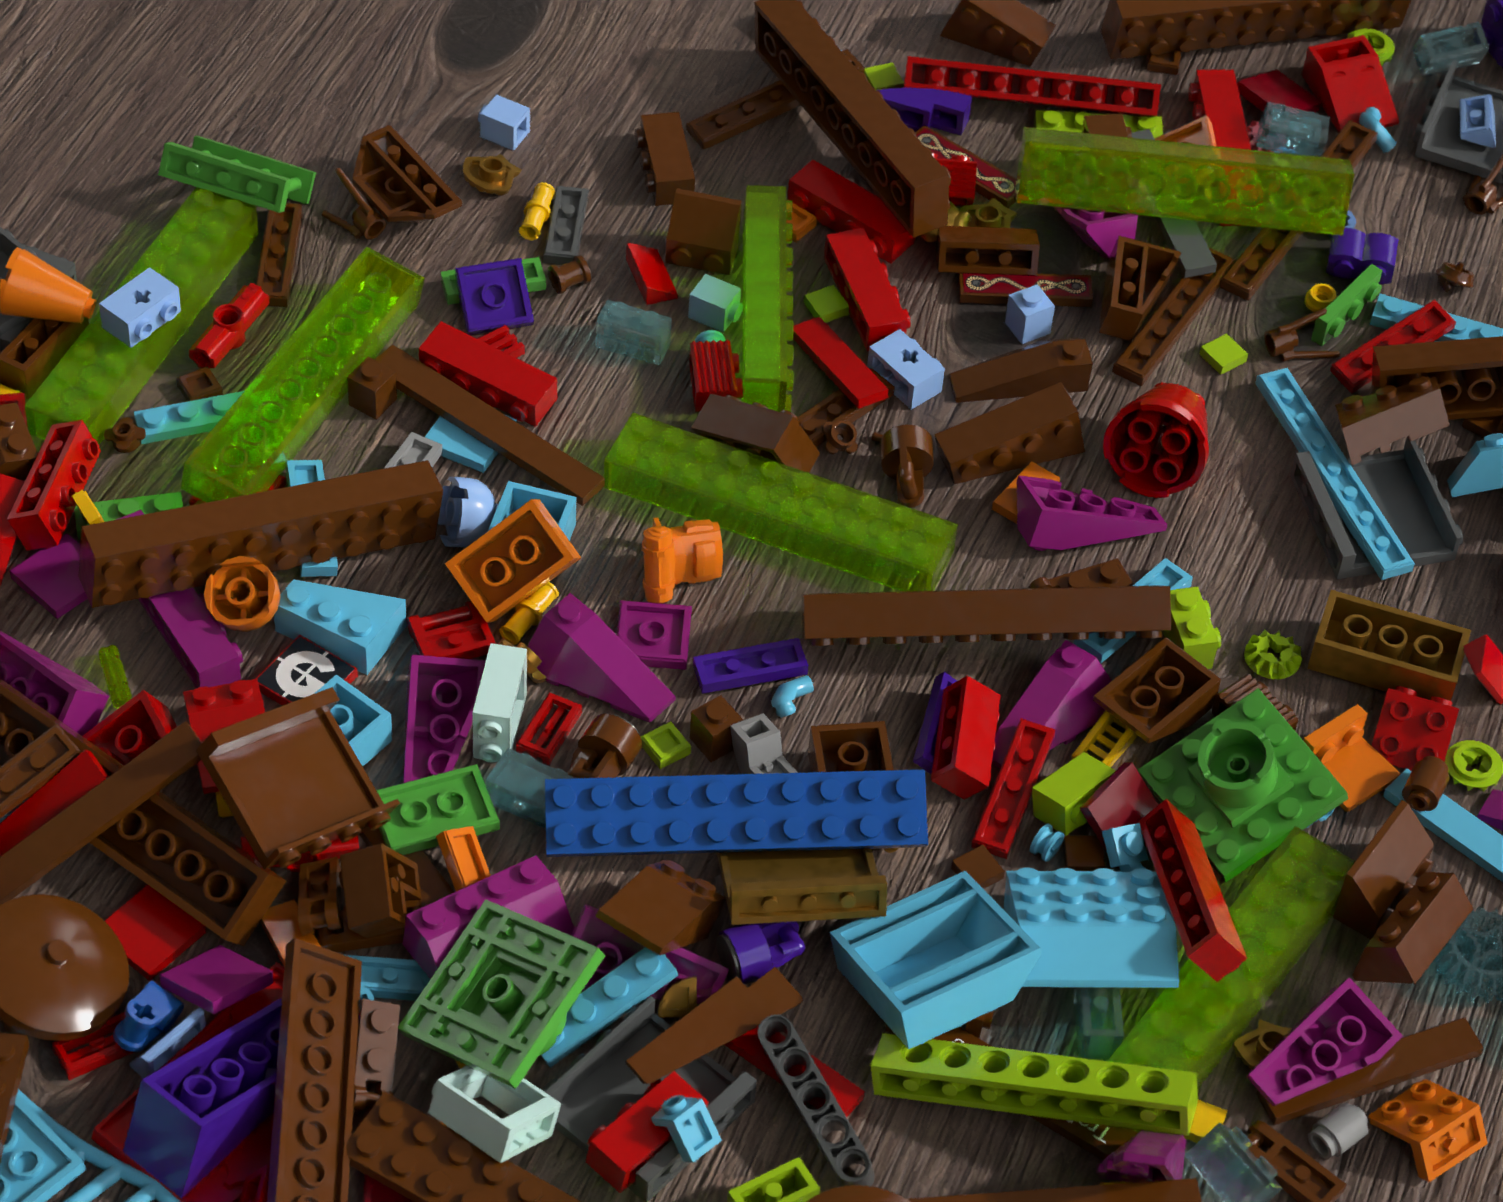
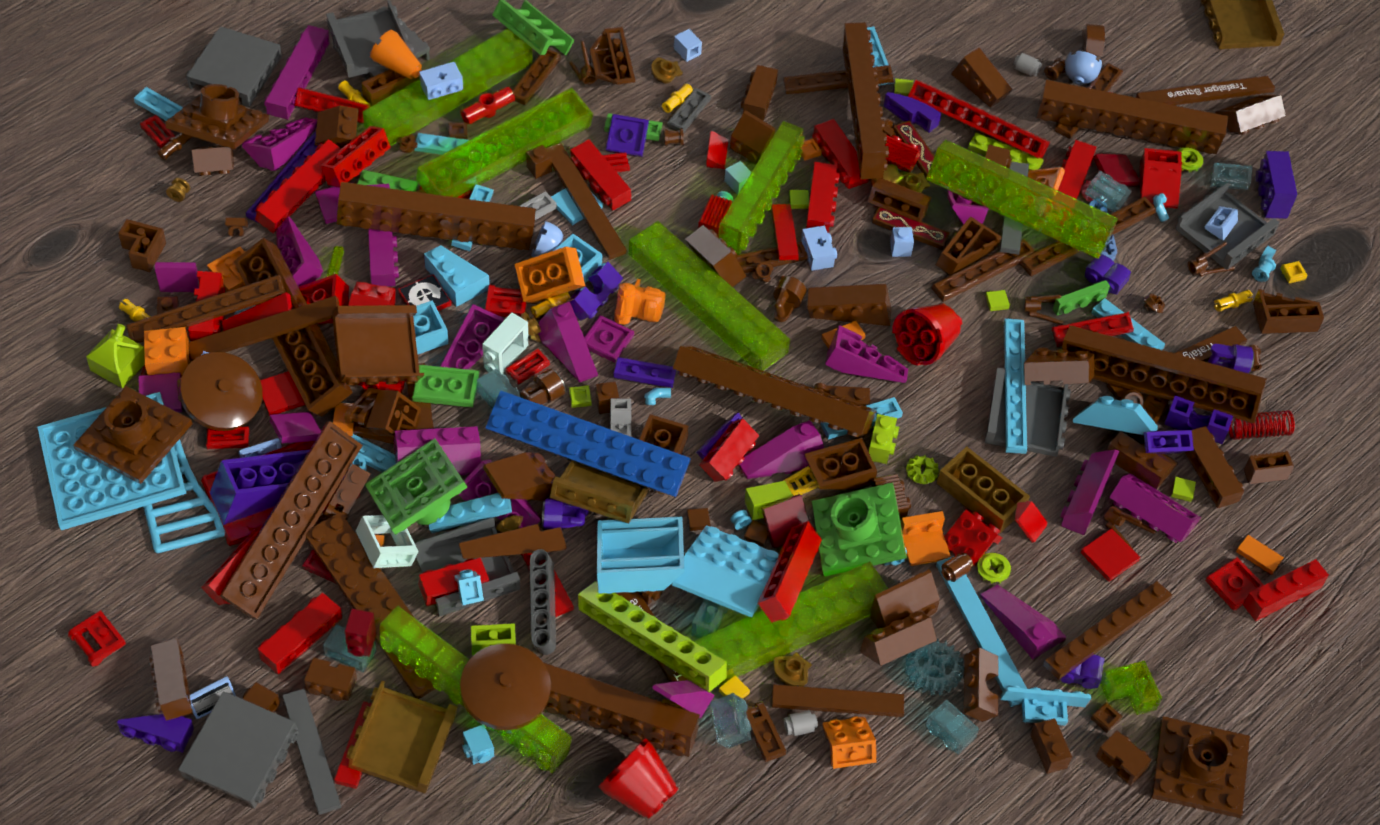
camera: 25 degrees right, 5 degrees up
(87, 508) = (363, 175): yellow tile -> none
(147, 1017) = (254, 433): blue piece -> none
(242, 594) = (410, 244): orange cylinder -> none
(463, 856) = (444, 413): orange tile -> none
(600, 543) = (605, 281): none -> dark purple arch
(633, 332) = (687, 179): clear light blue brick -> none
(1013, 788) = (735, 489): red tile -> none
(1026, 371) = (895, 272): reddish brown wedge -> none
(1125, 847) = (776, 537): medium azure plate -> none
(1319, 297) = (1069, 287): yellow plate -> none
(1325, 1044) = (820, 677): magenta wedge -> none

